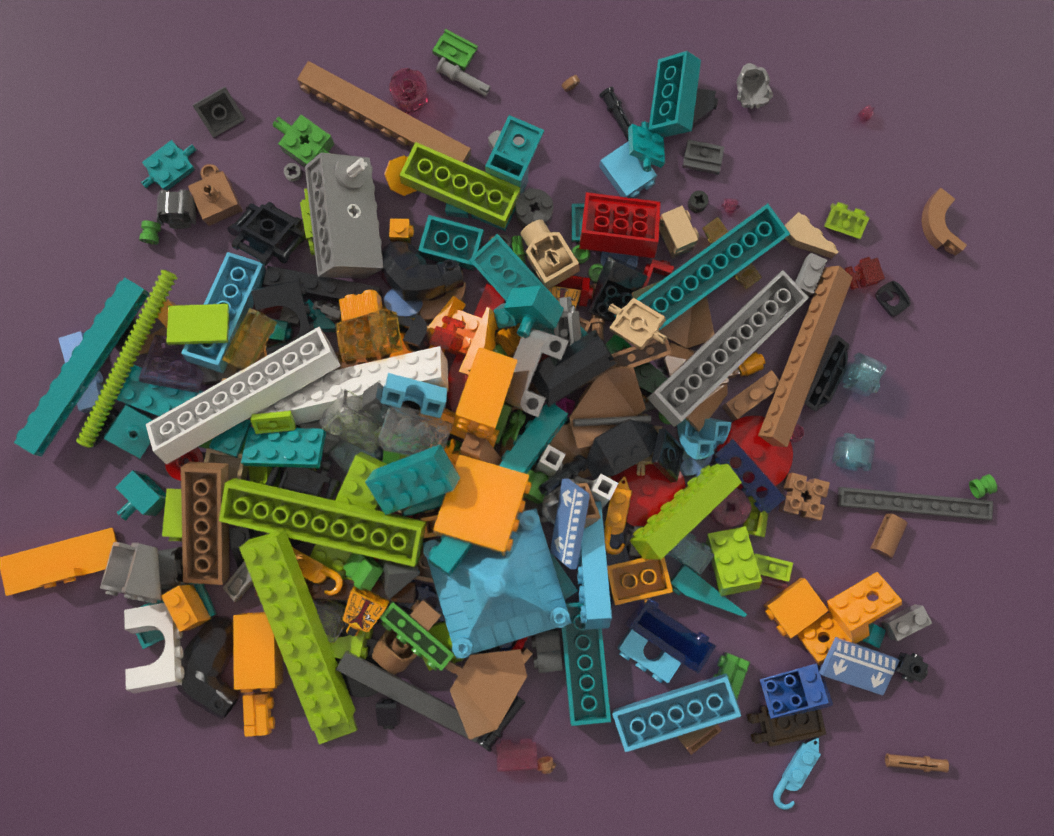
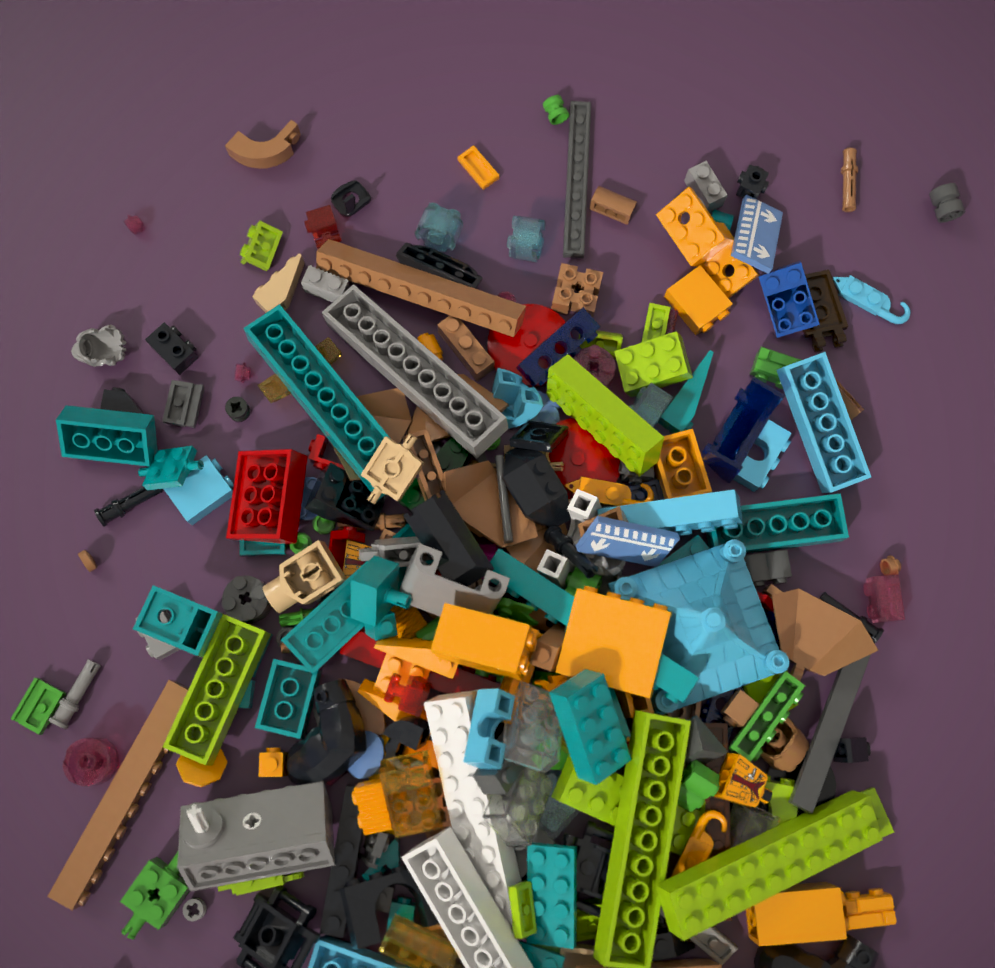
camera: 90 degrees left, 5 degrees down
(677, 231) = (275, 429): tan piece -> none
(752, 146) = (172, 348): none -> black brick
(924, 413) = (478, 167): none -> light orange tile

